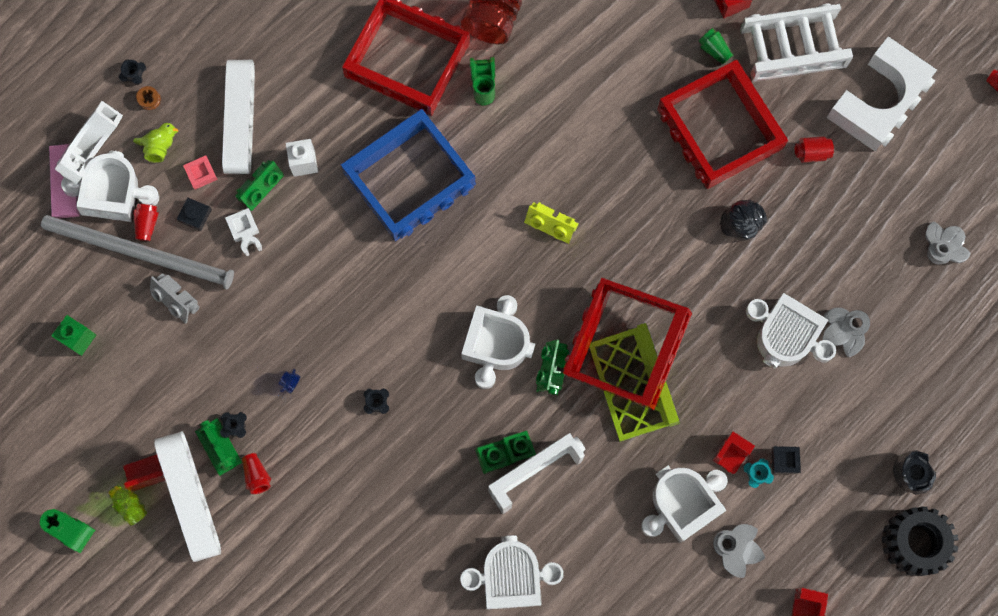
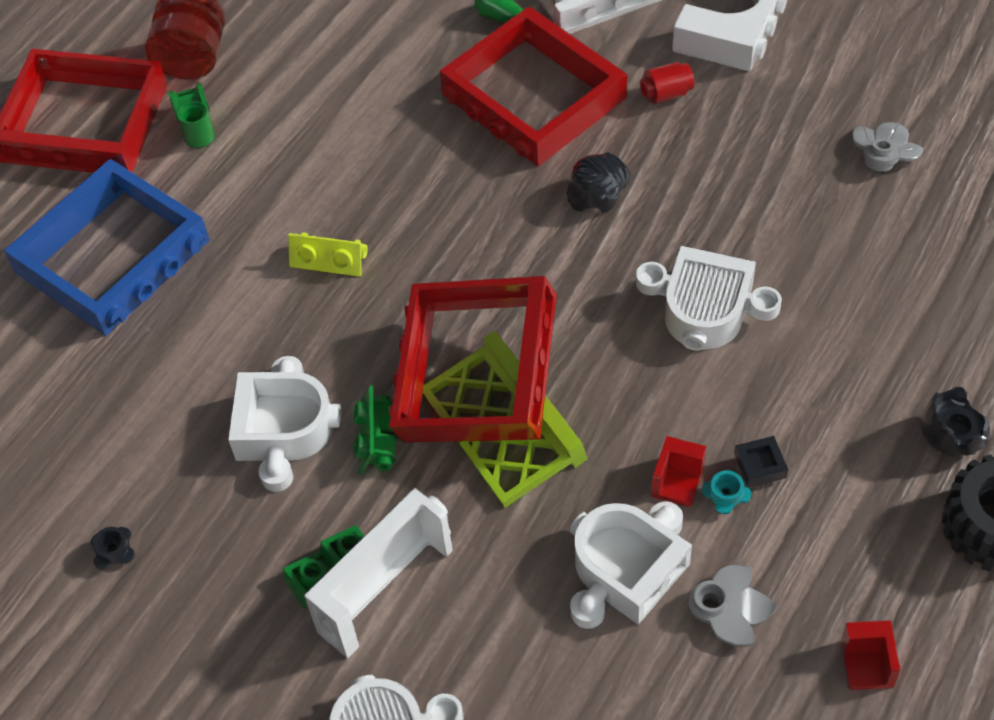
camera: 10 degrees left, 20 degrees down
(843, 332) = (791, 280): light grey plate -> none

